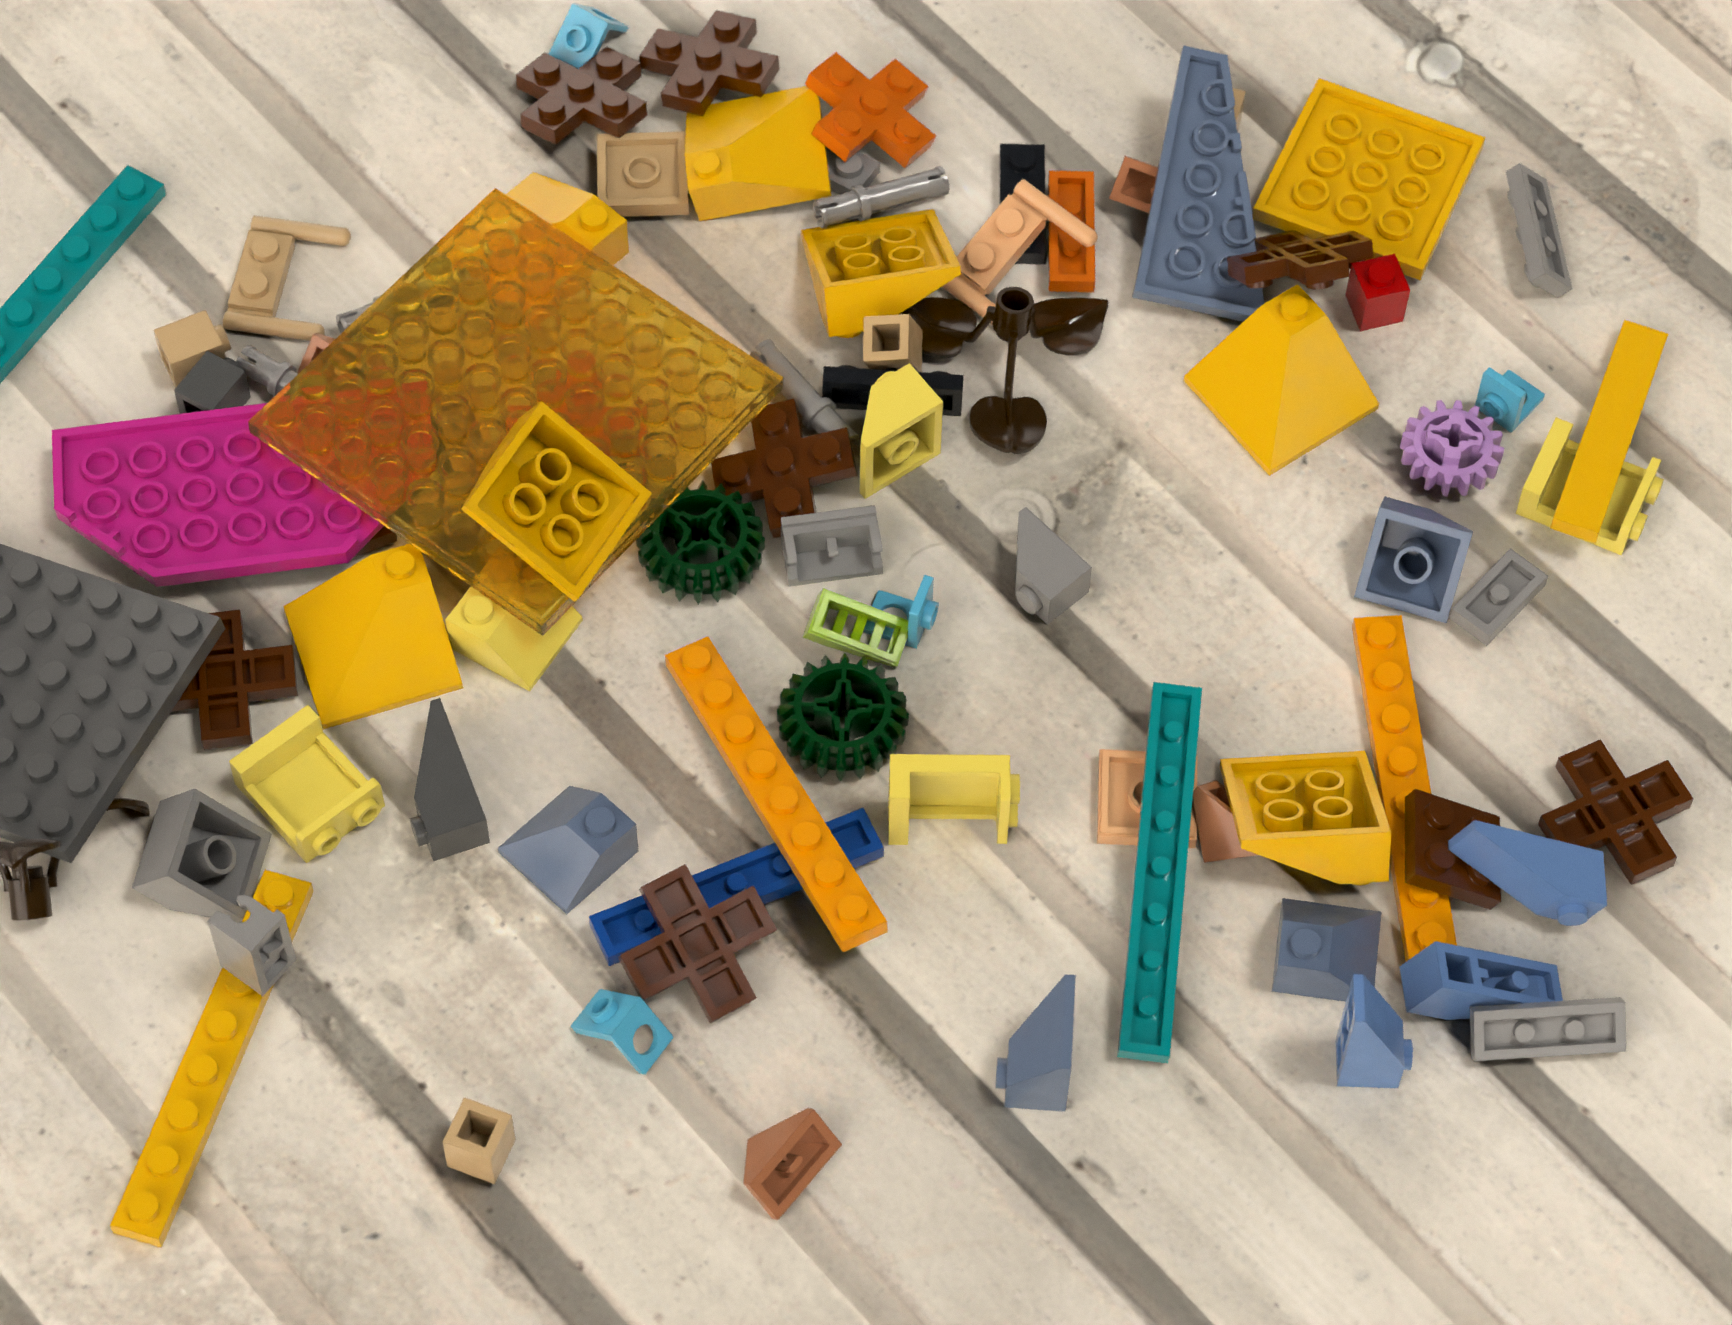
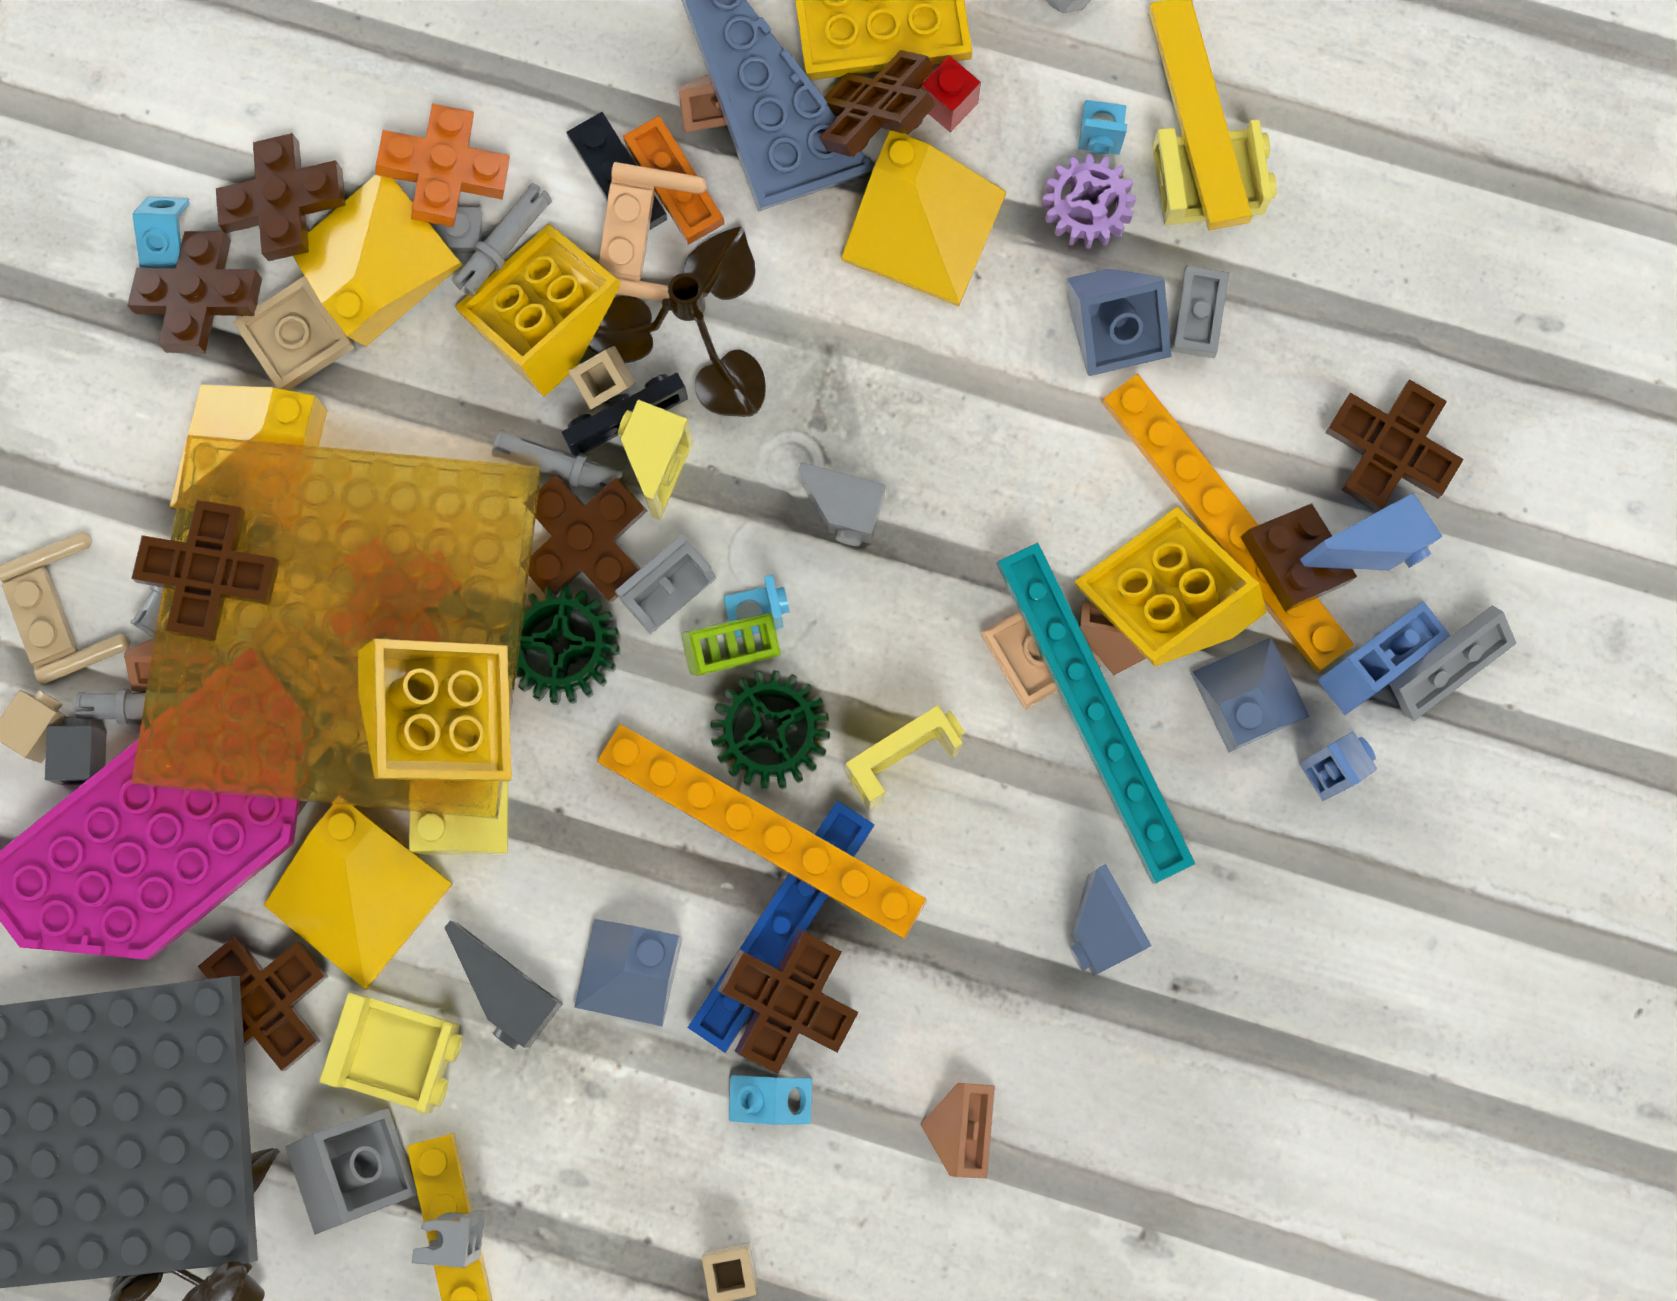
camera: 30 degrees left, 20 degrees up
(434, 289) = (205, 570): none -> reddish brown plate

